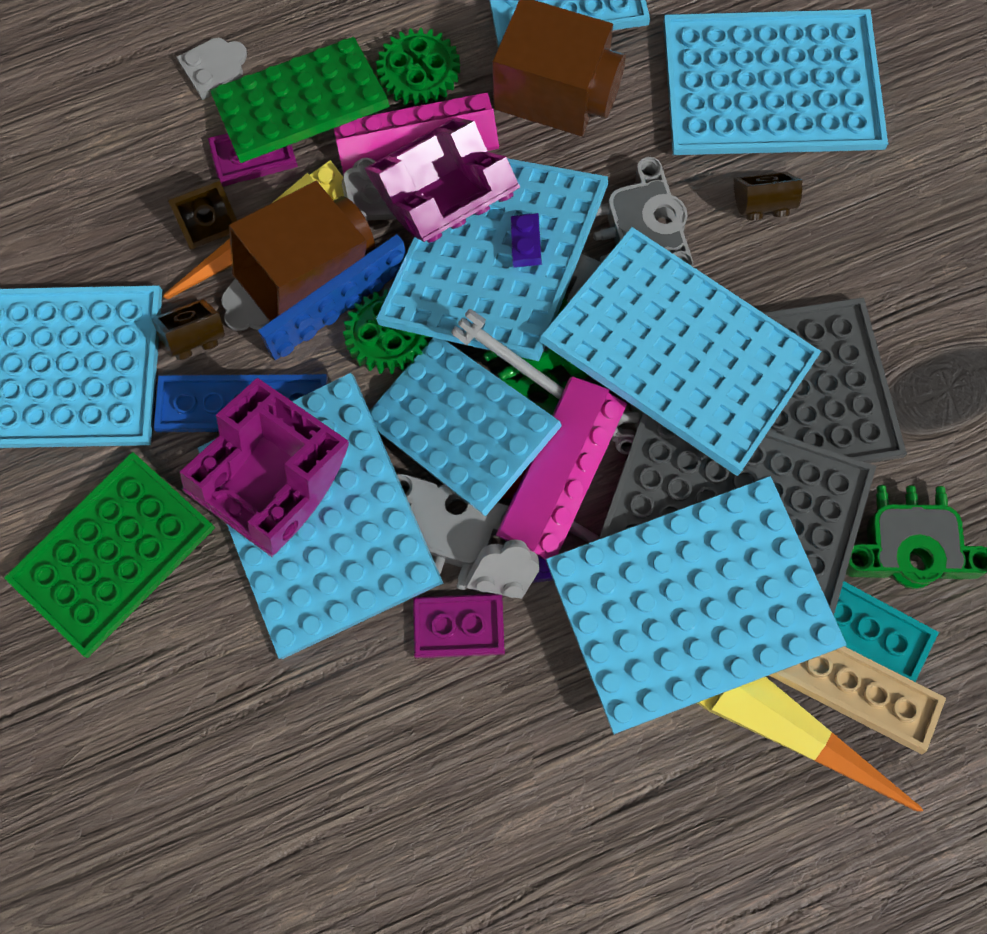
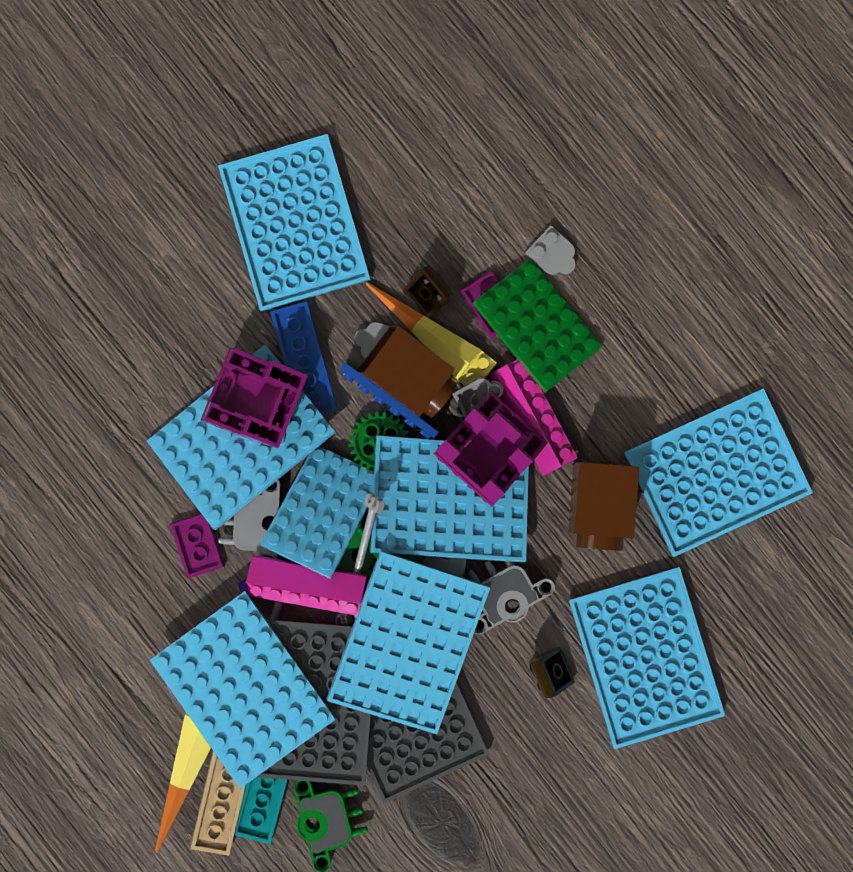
camera: 70 degrees right, 15 degrees up
(109, 554) = (183, 313): green plate -> none
(189, 328) = (343, 309): dark brown brick -> none
(418, 67) = (602, 410): green gear -> none
(504, 569) = (233, 569): light grey plate -> none
(526, 240) = (458, 519): dark purple plate -> none

